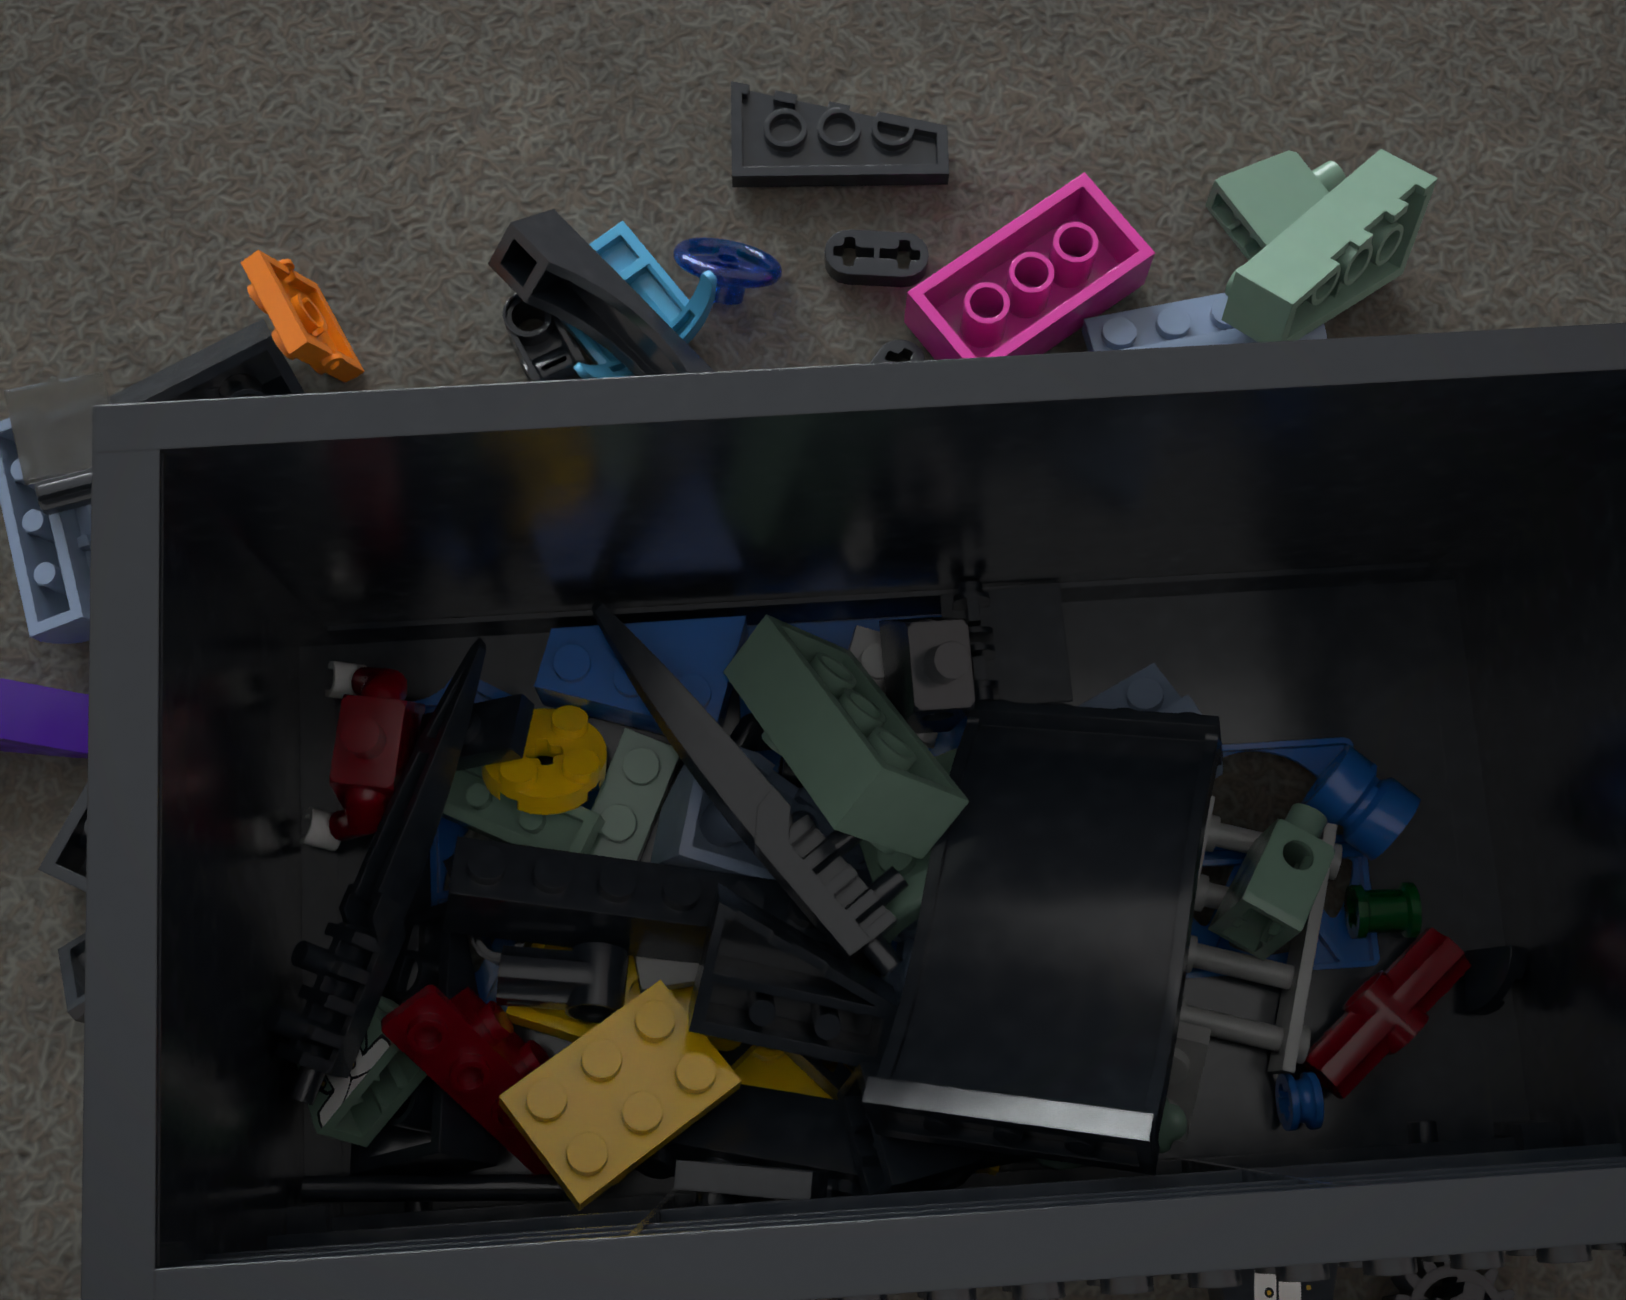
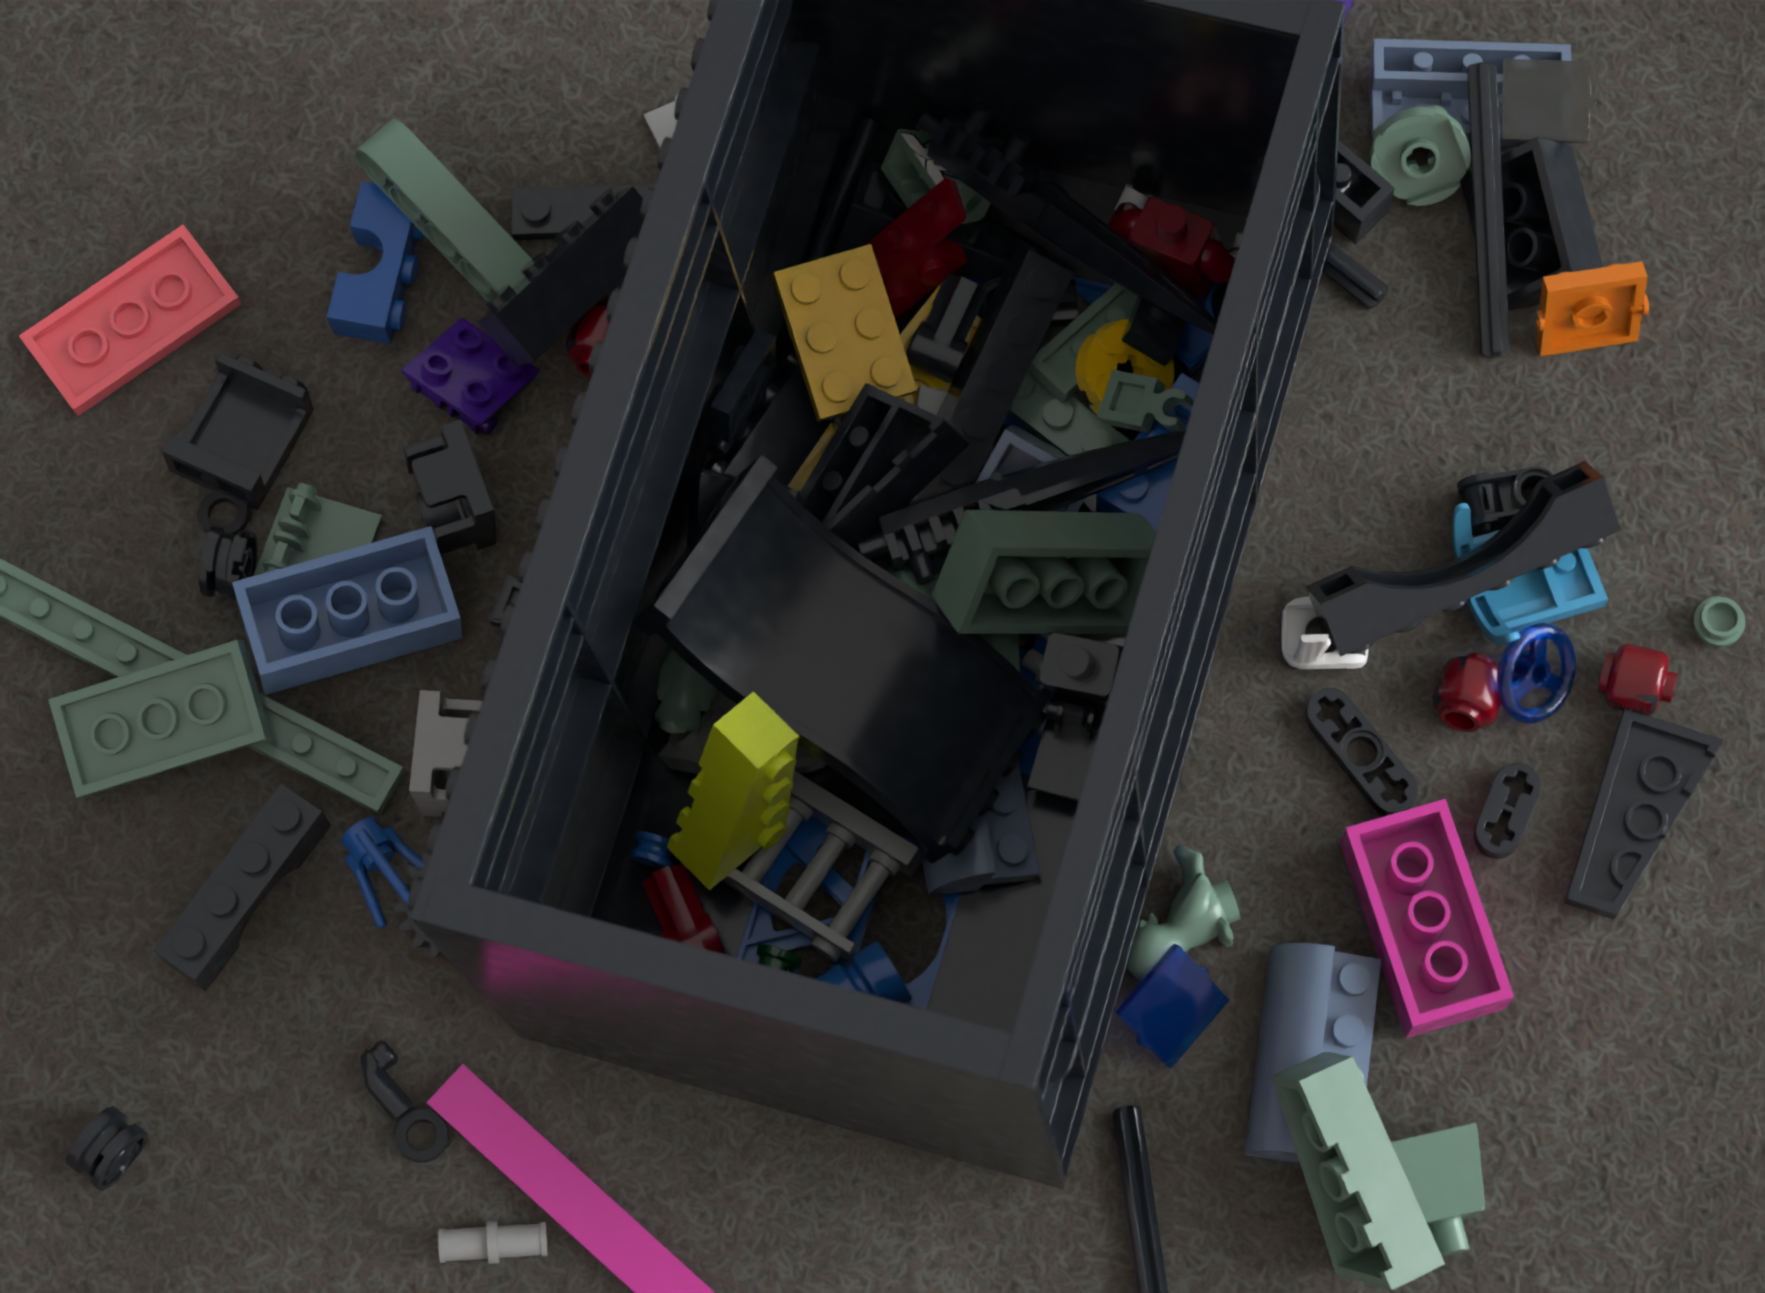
camera: 115 degrees right, 0 degrees up
(592, 718) = (1138, 400): none -> sand green plate
(603, 125) = (1719, 621): none -> sand green plate
(697, 174) = (1637, 679): none -> dark red head
(769, 323) = (1467, 693): none -> dark red head
(1257, 991) = (738, 793): none -> neon yellow wedge
(1276, 884) = (809, 853): sand green torso -> none

